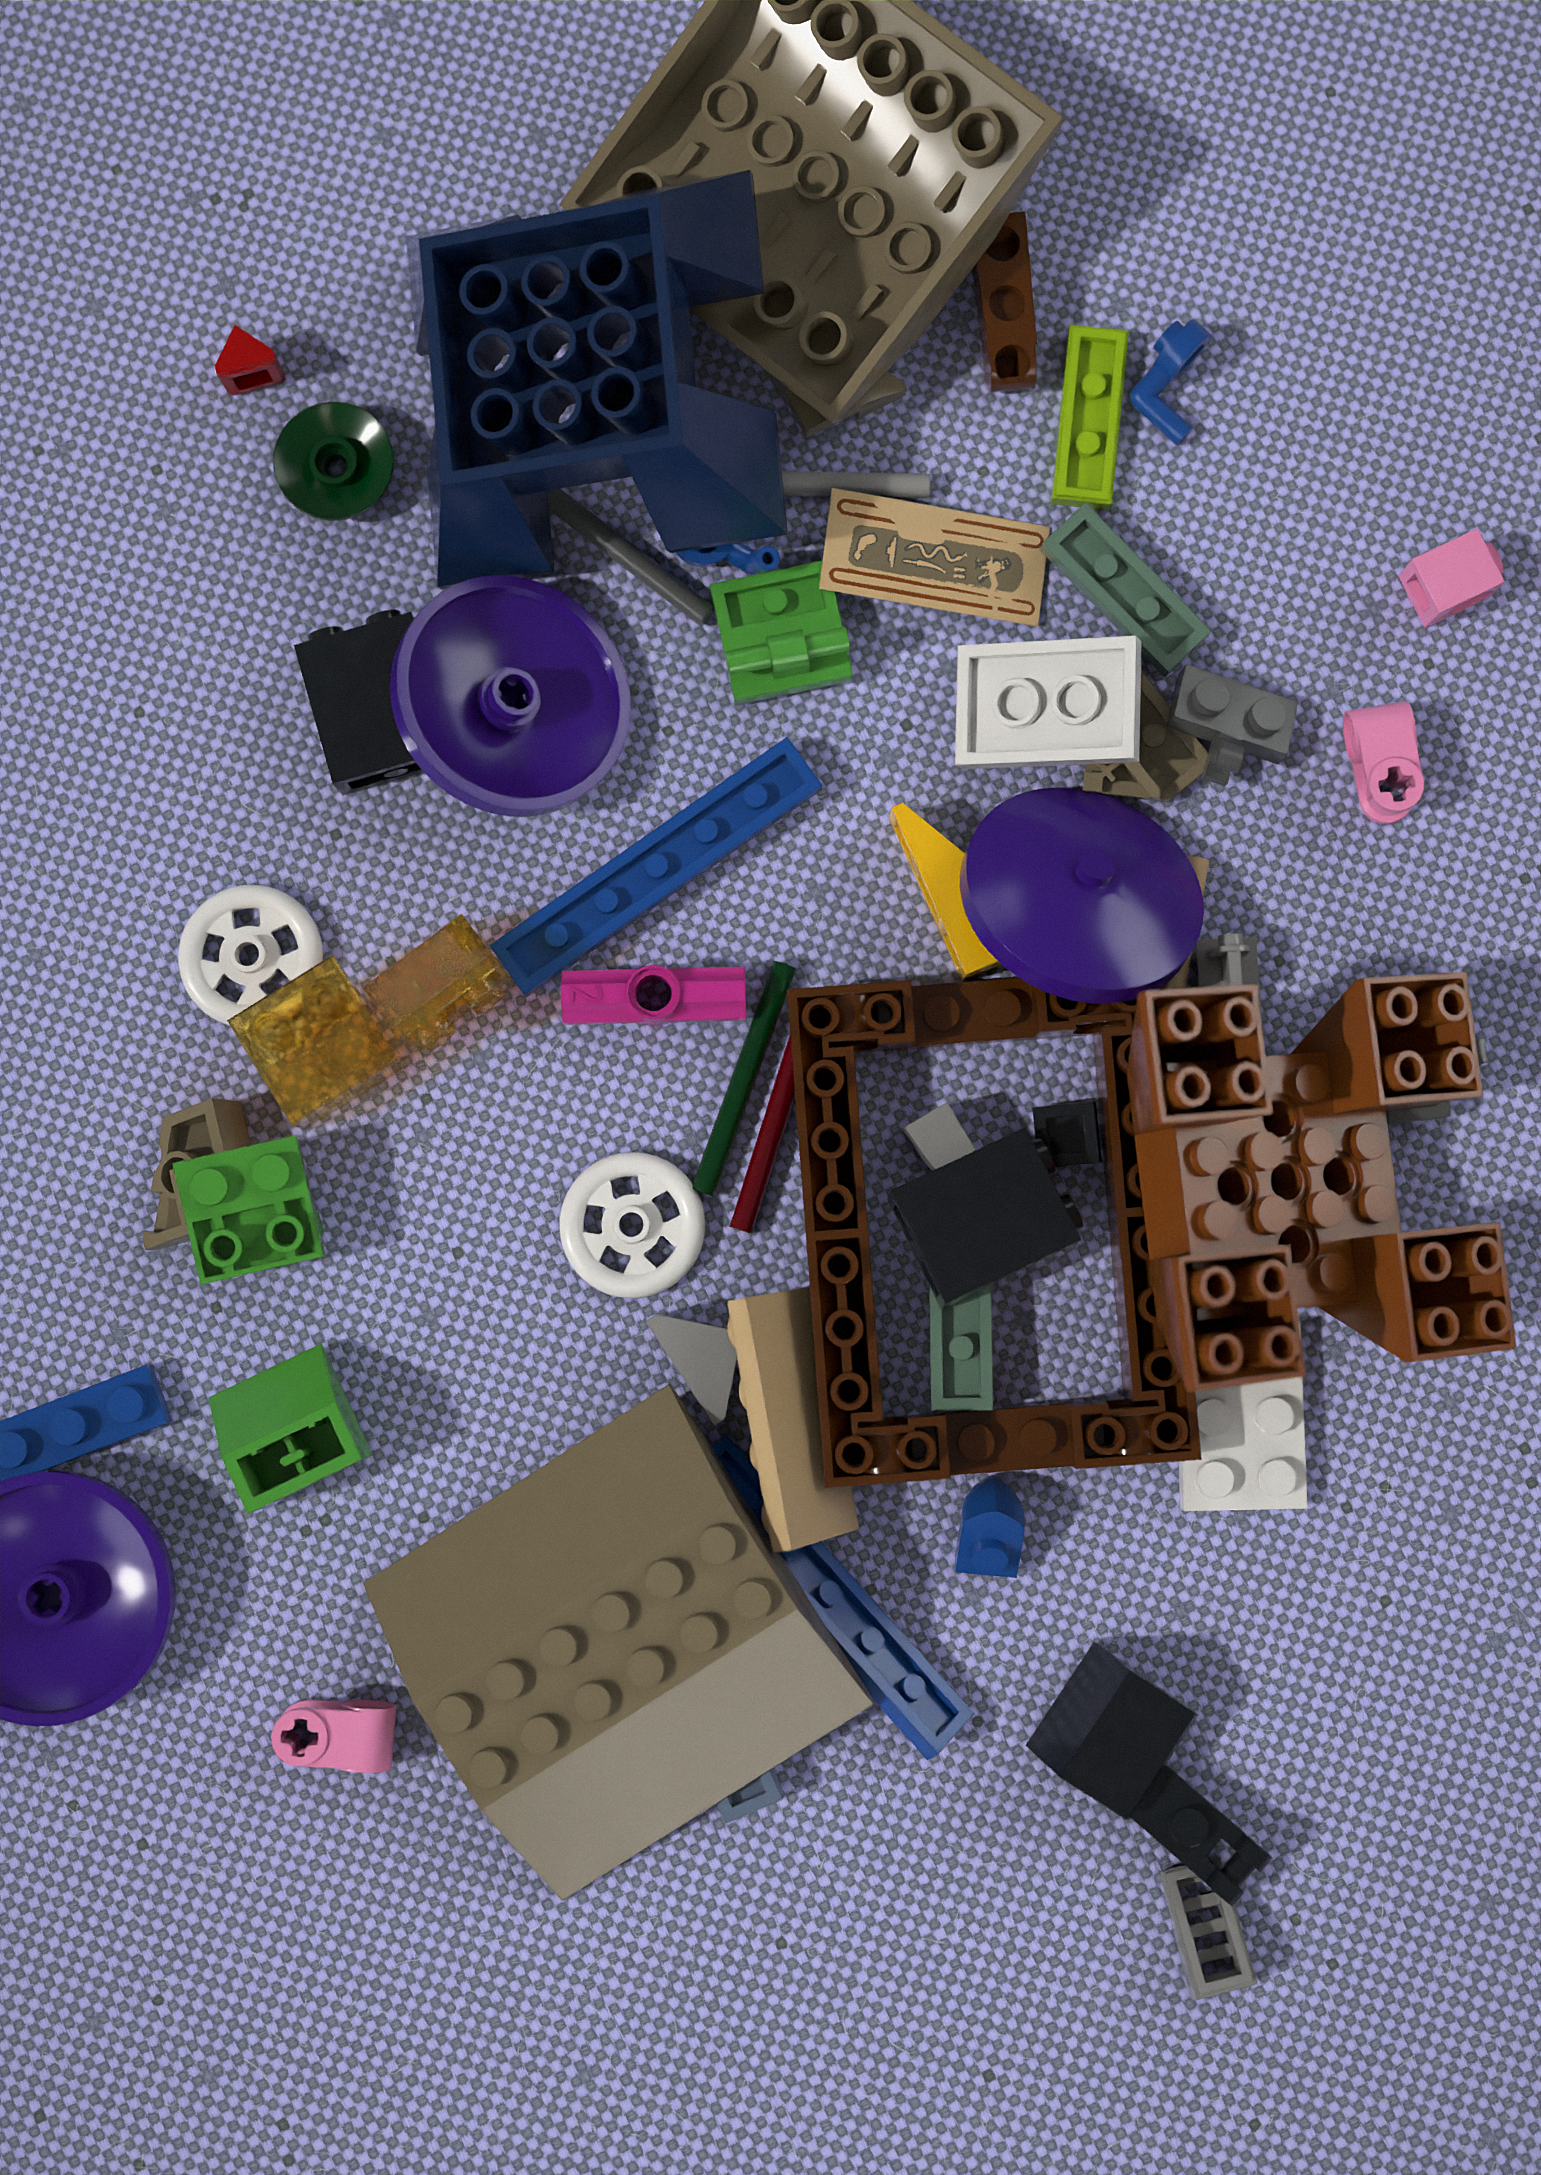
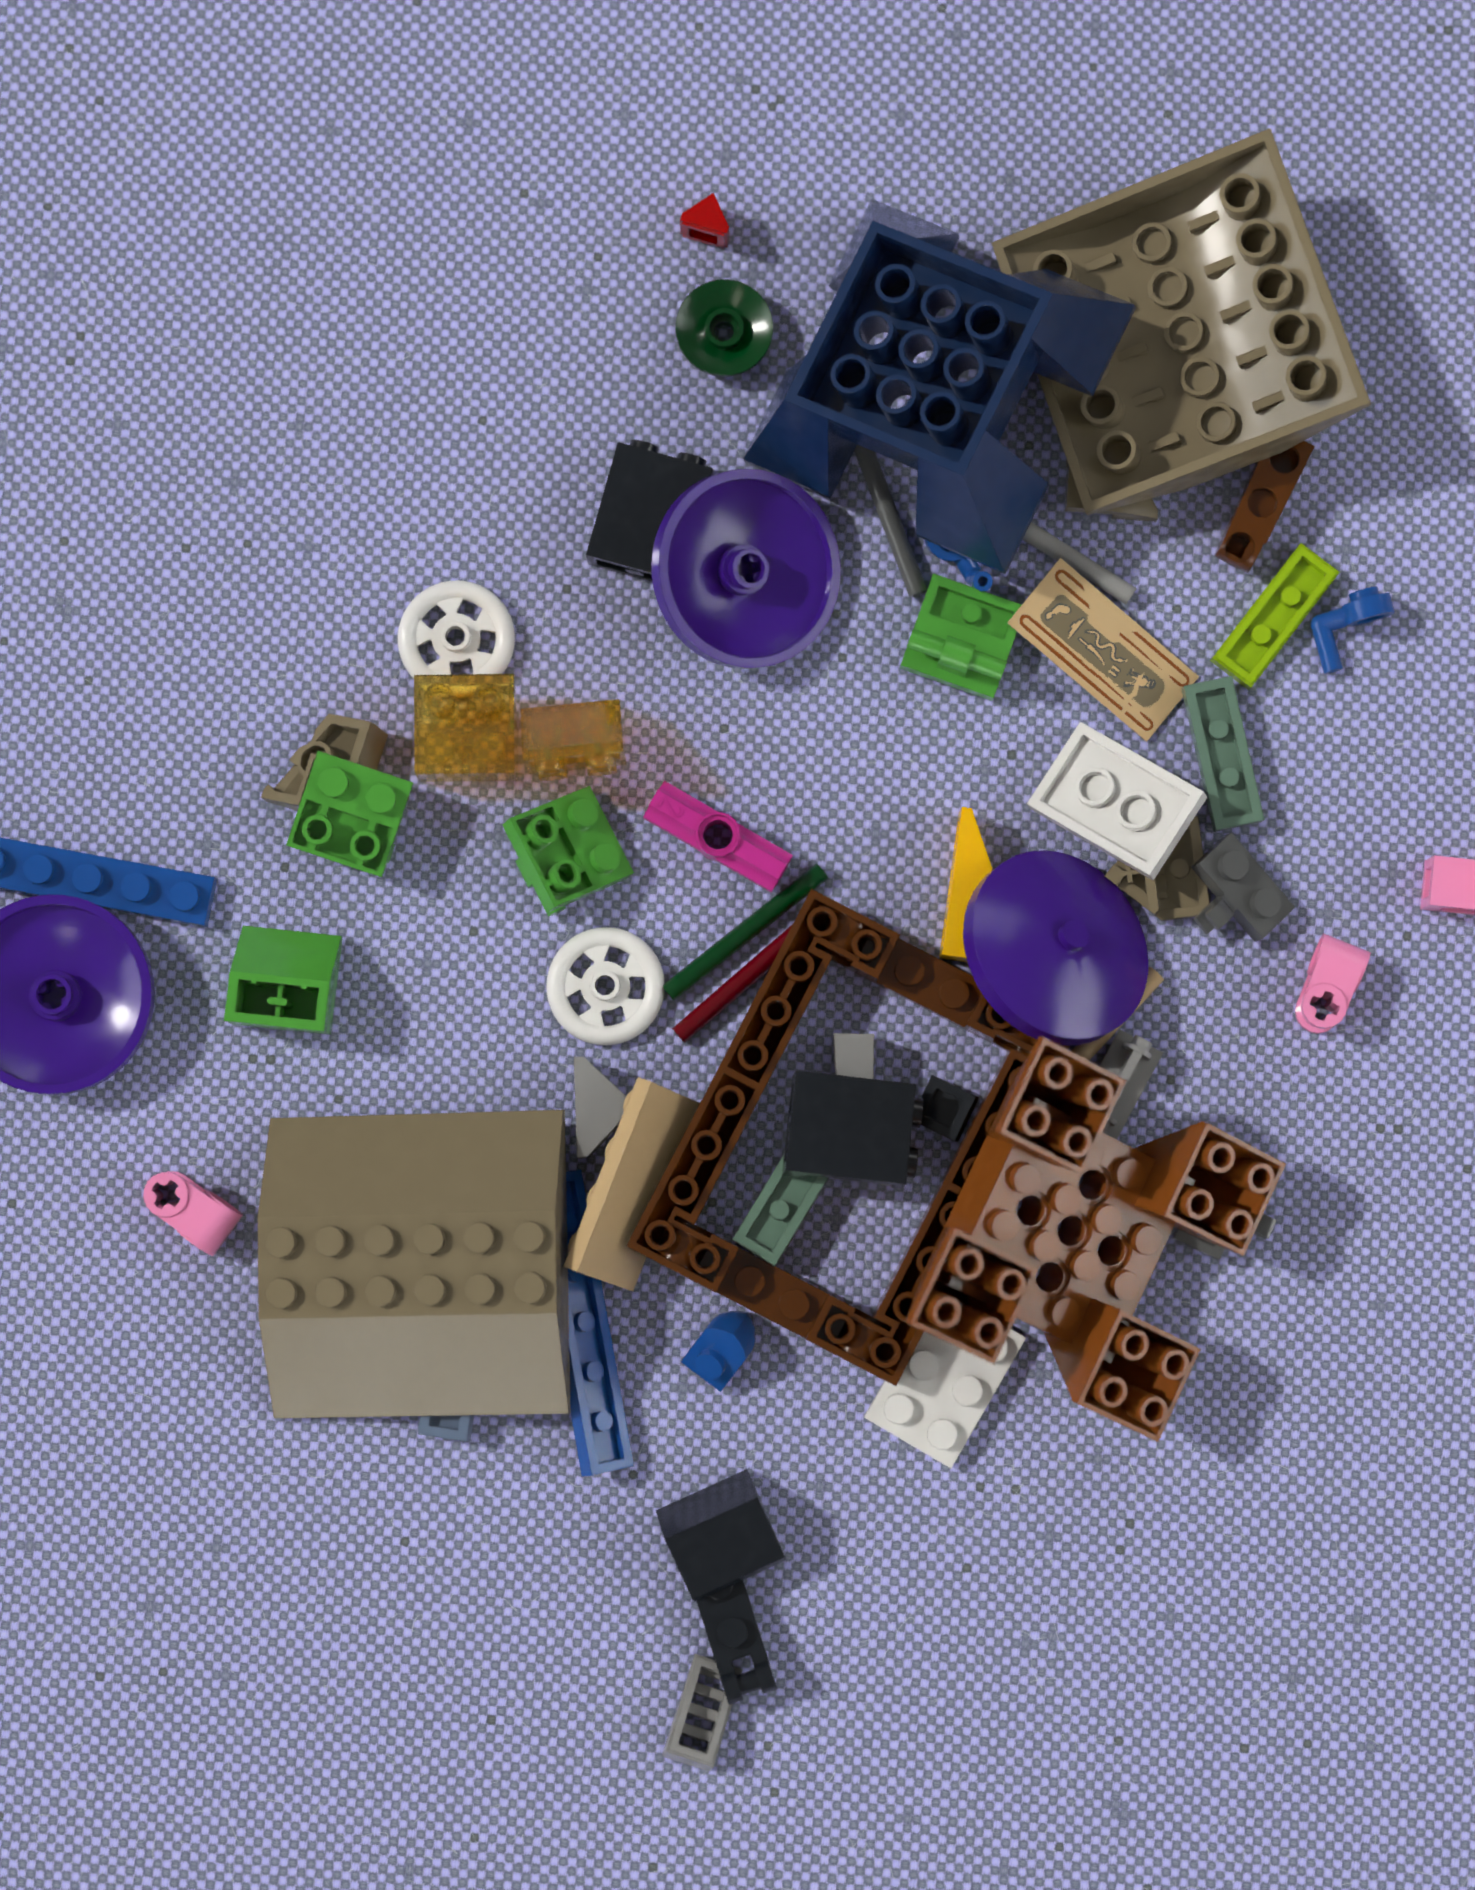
camera: 30 degrees right, 0 degrees up
(503, 1106) = (567, 849): none -> bright green plate
(656, 867) = (775, 748): blue plate -> none

